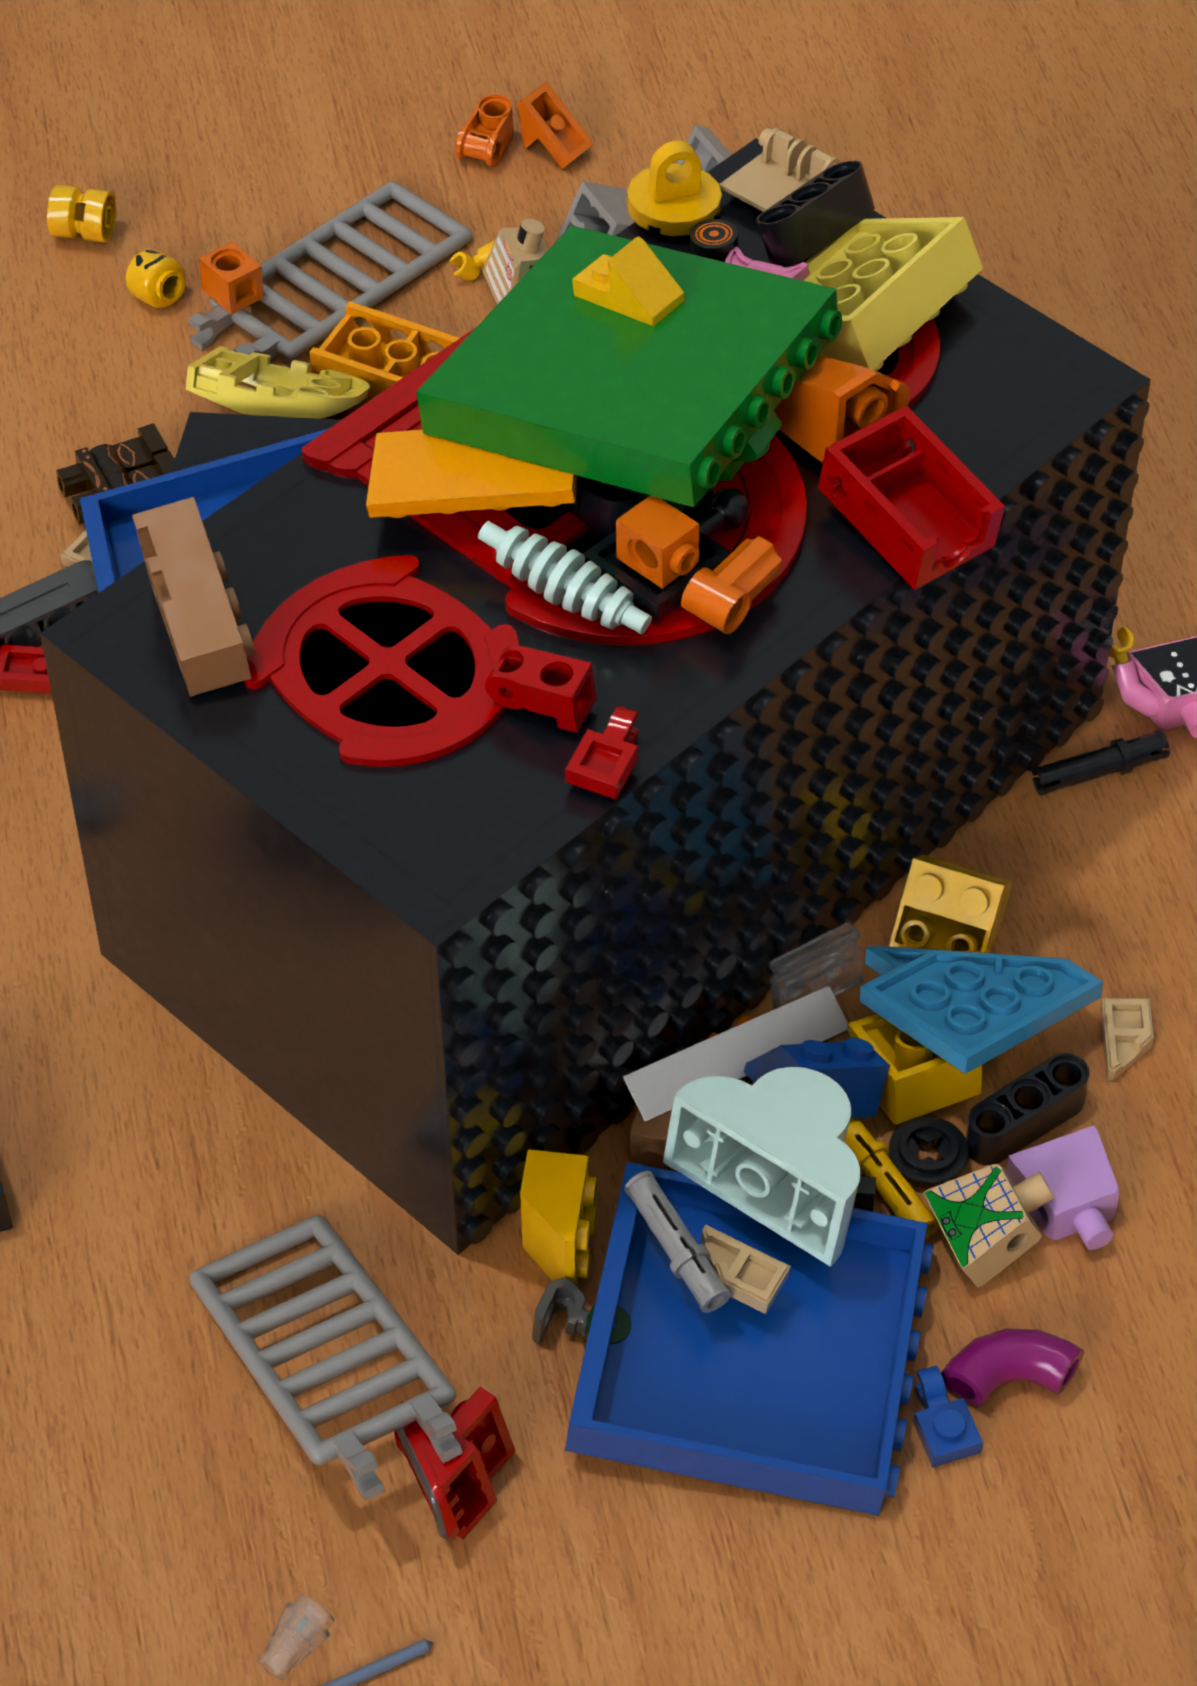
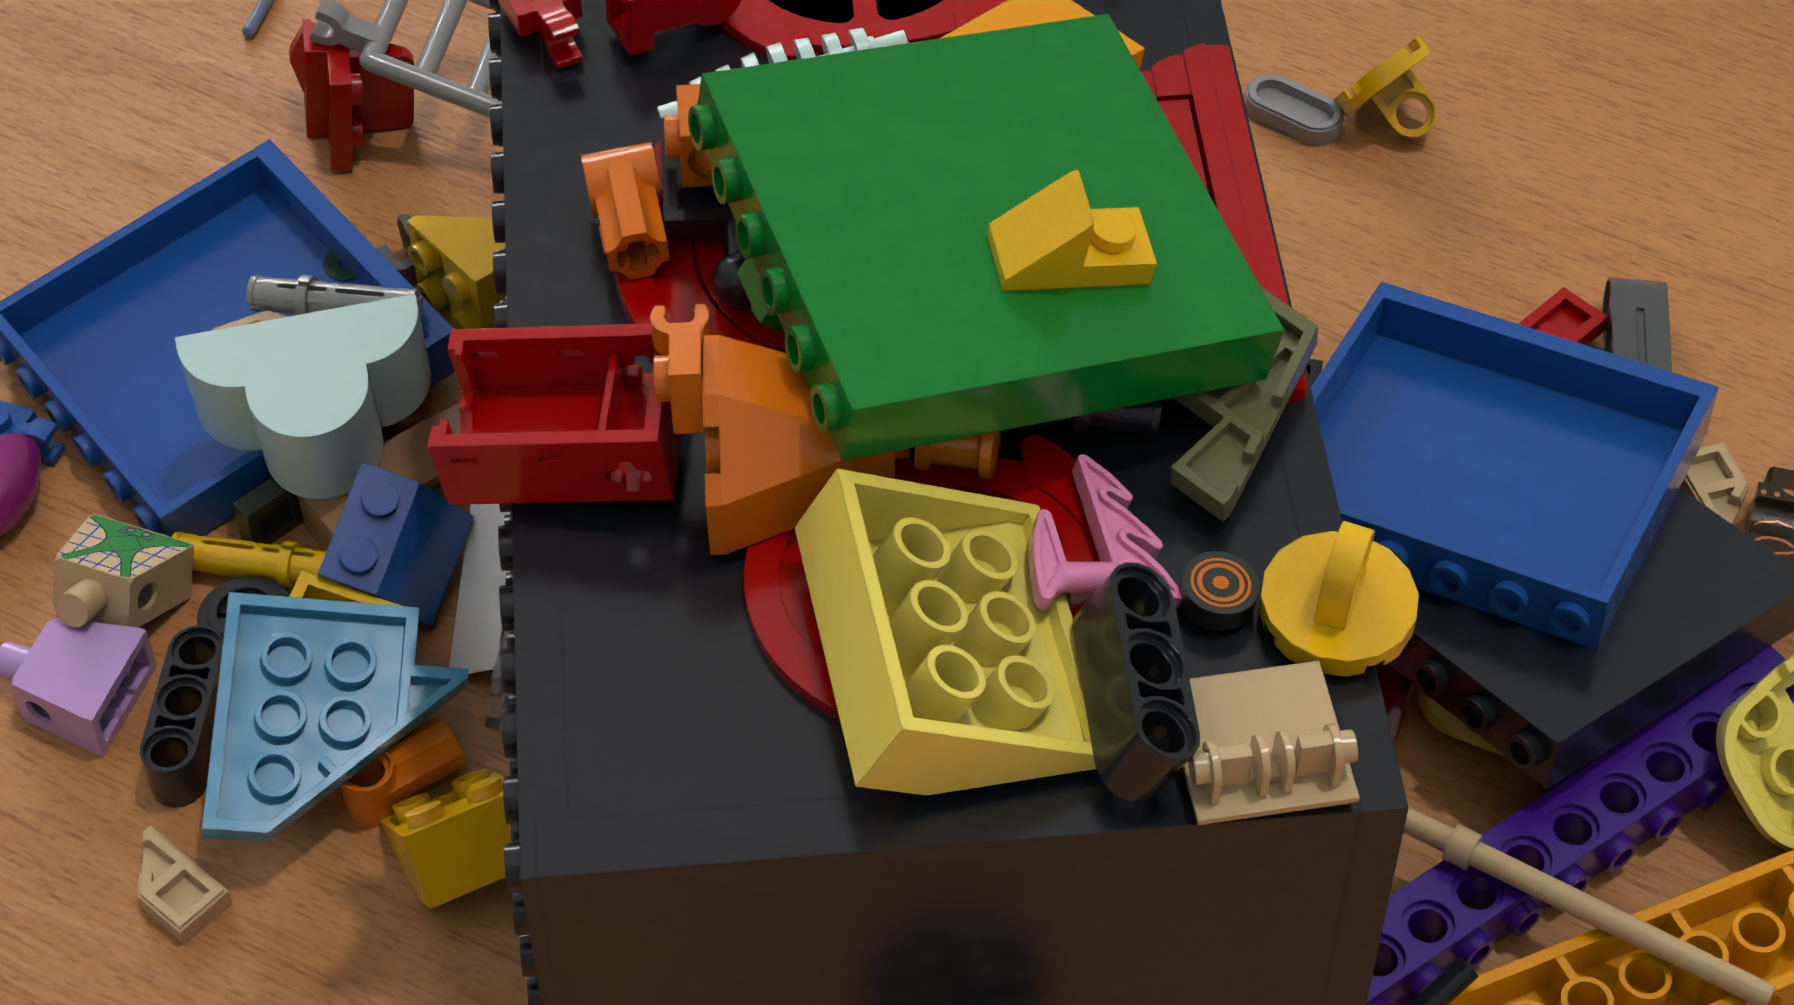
camera: 130 degrees right, 0 degrees up
(861, 403) = (680, 366): none -> orange plate

